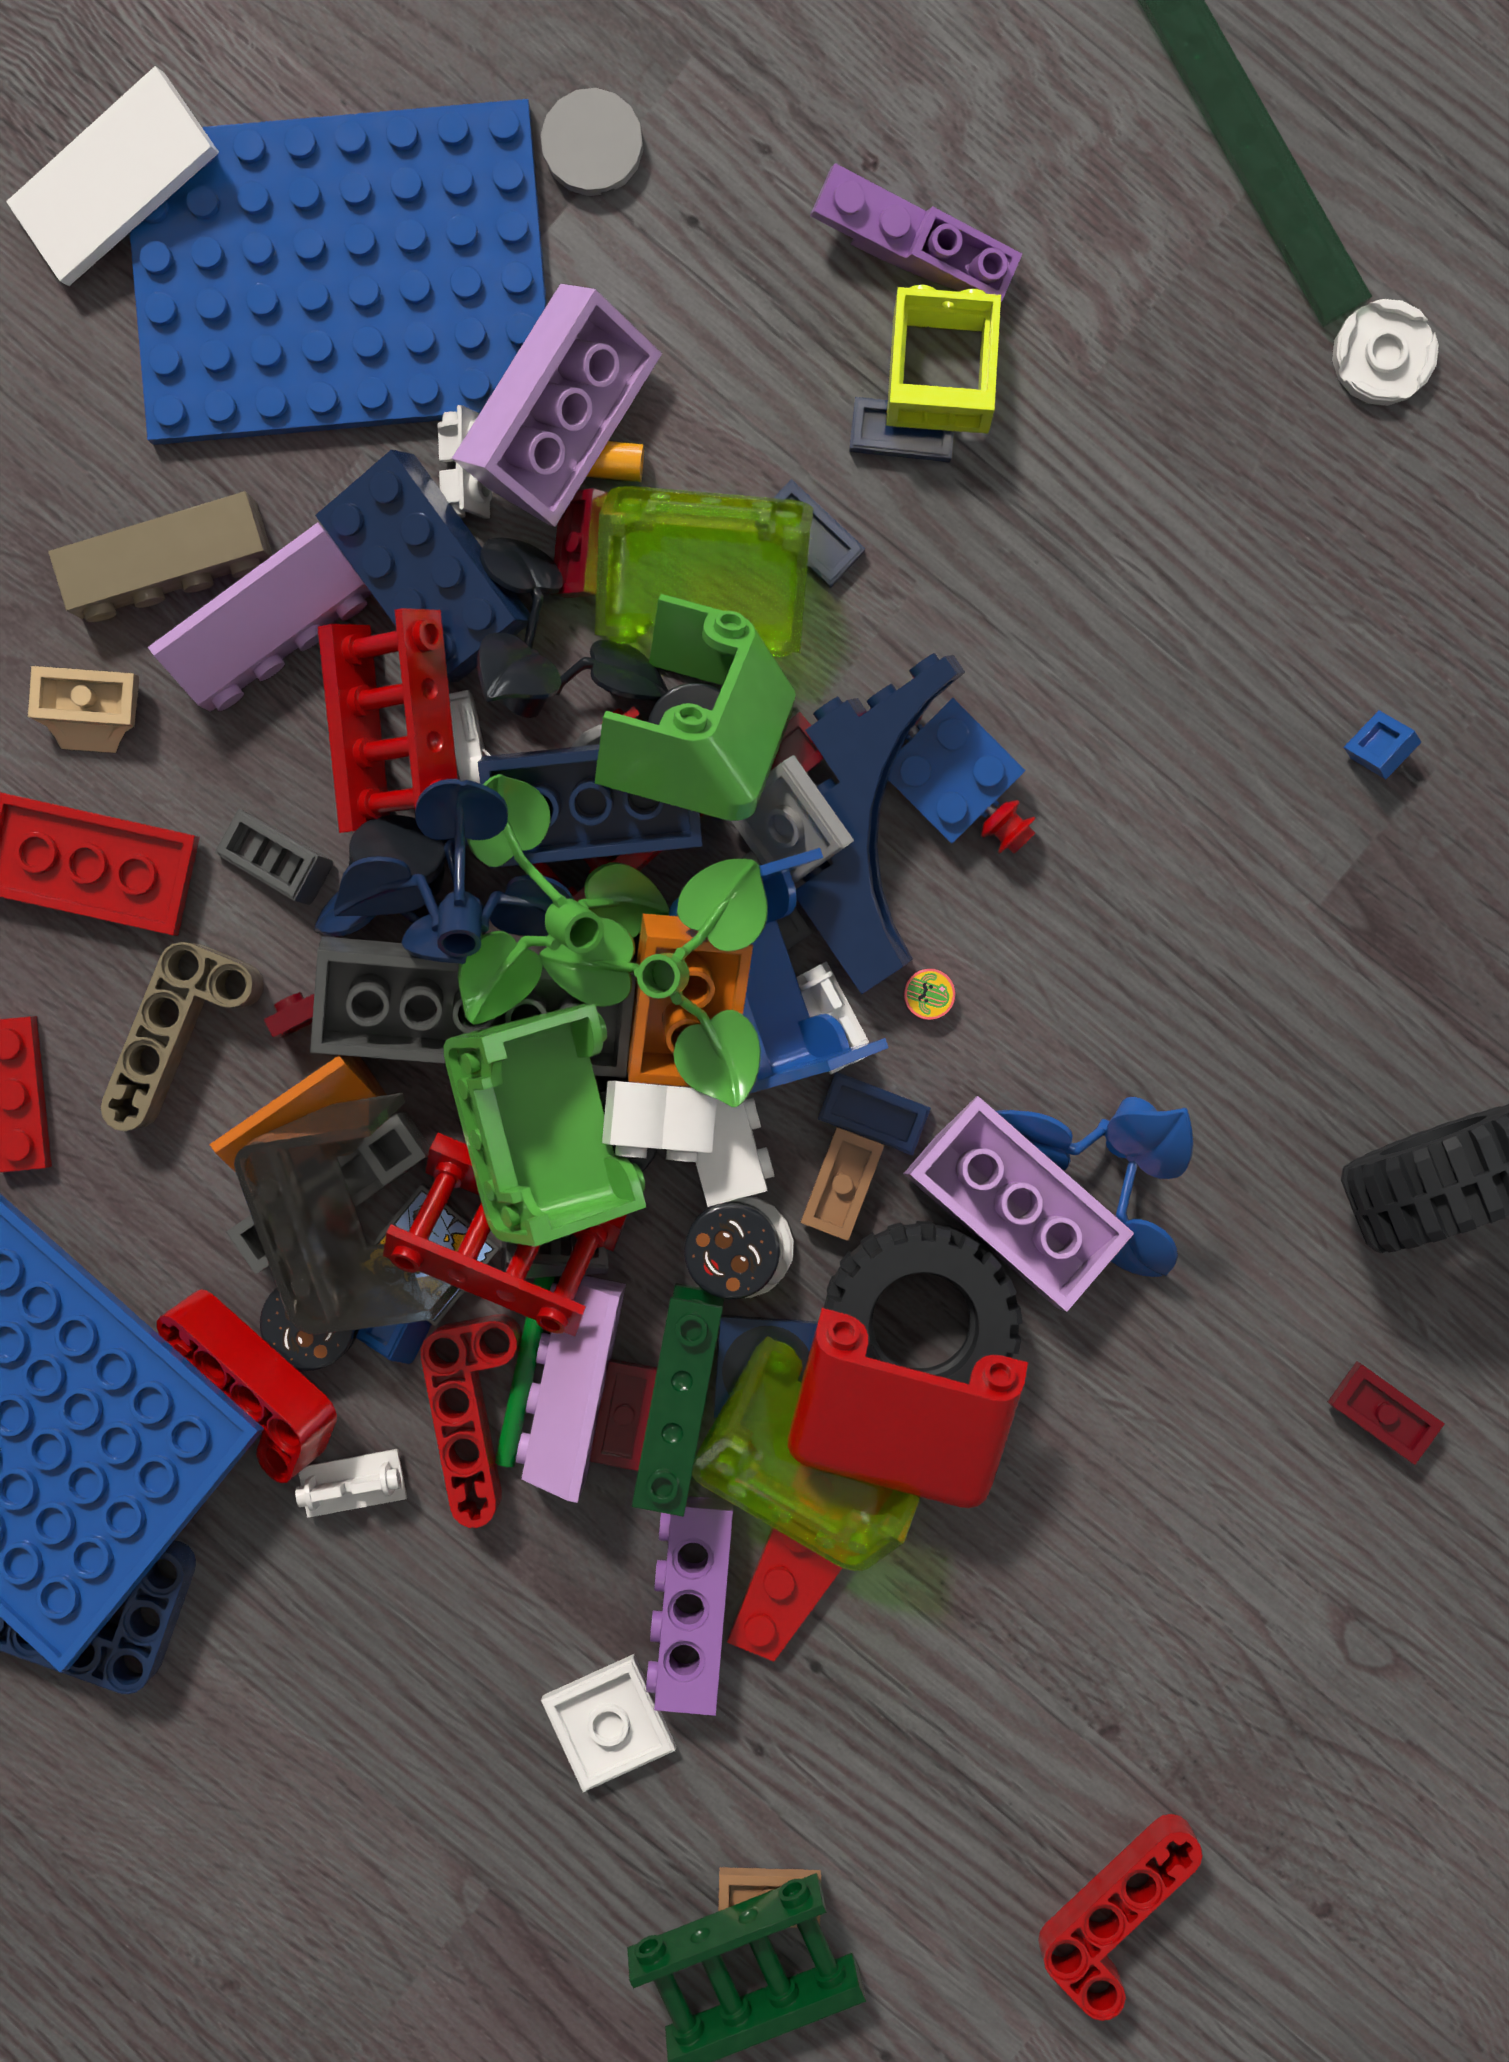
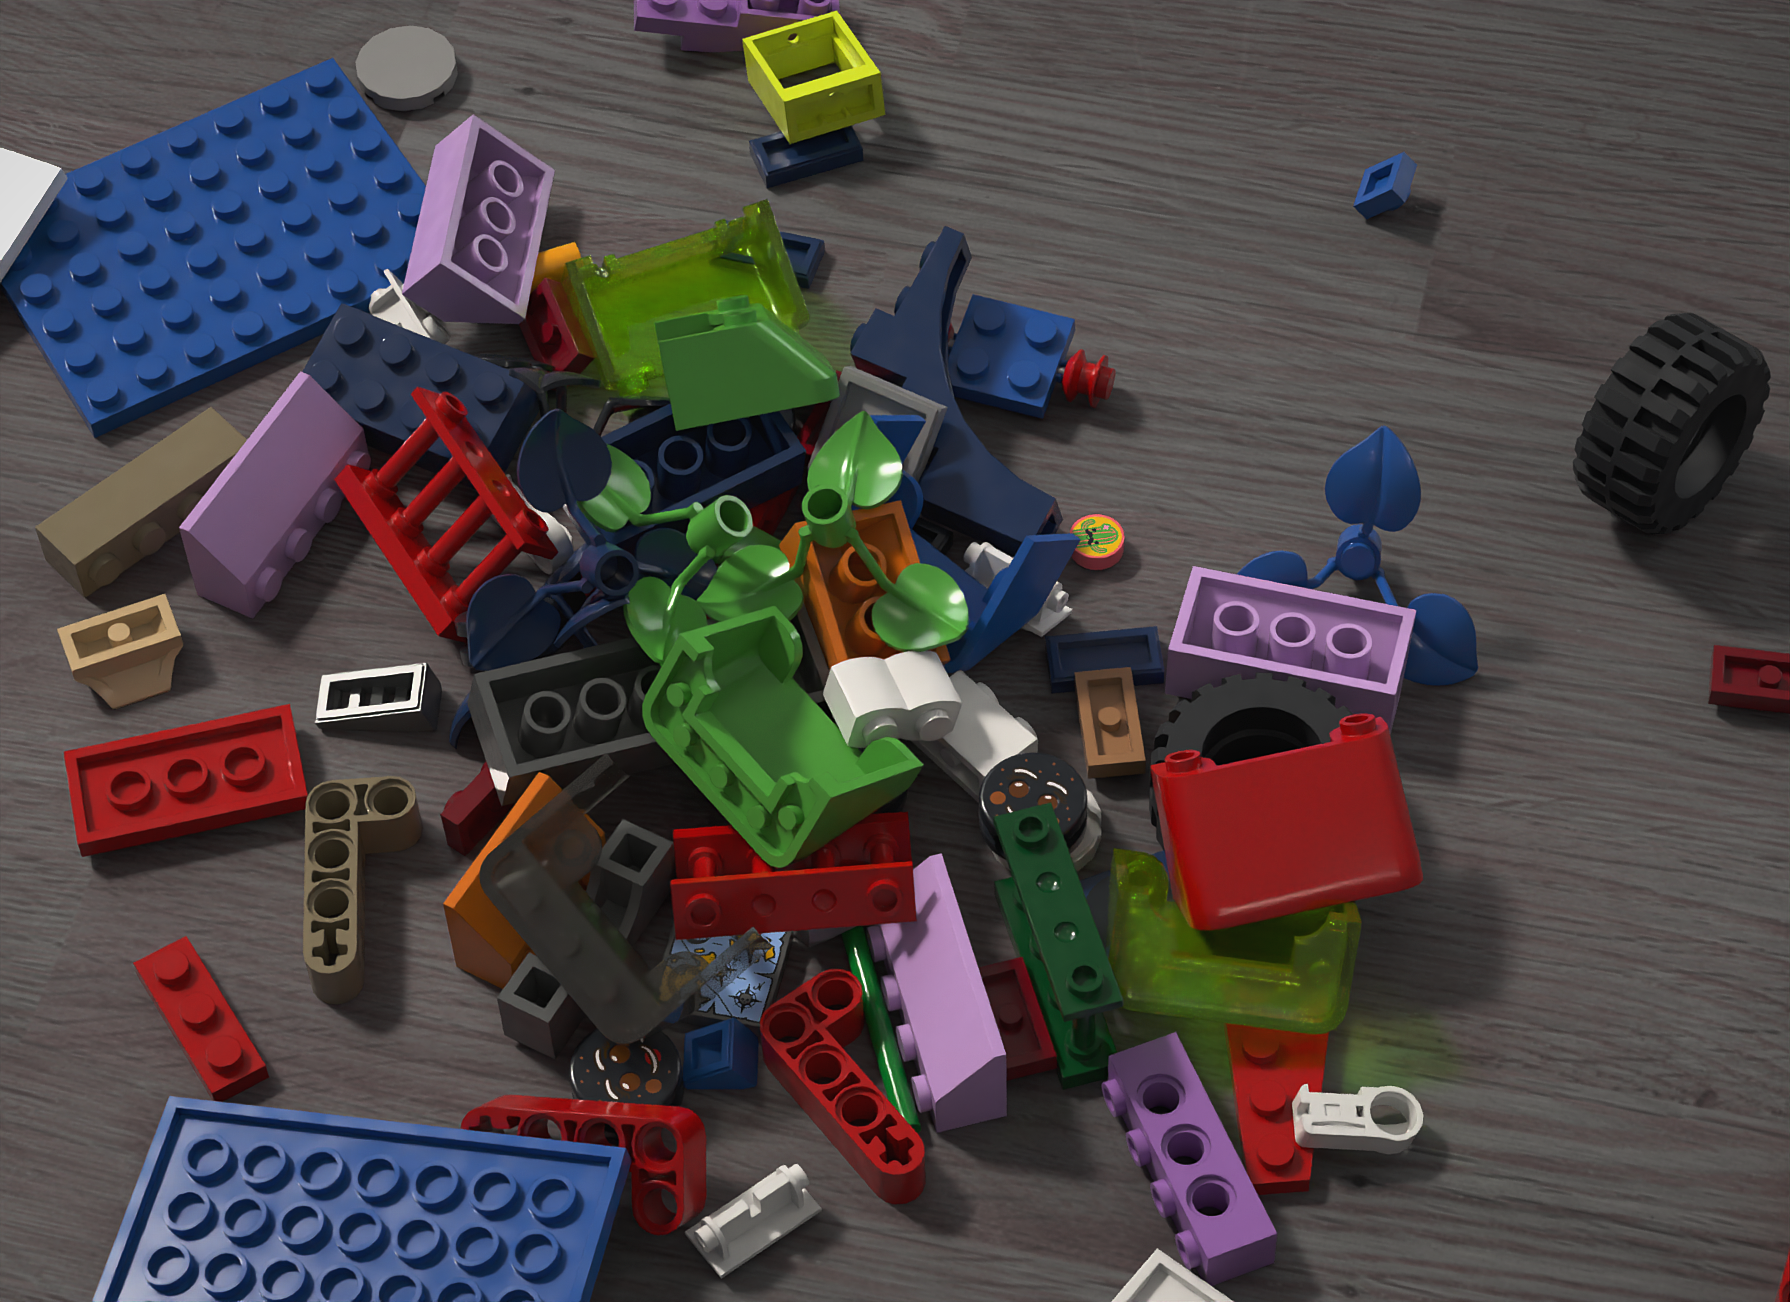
camera: 25 degrees left, 35 degrees down
(825, 1631) = (1346, 1120): none -> white piece

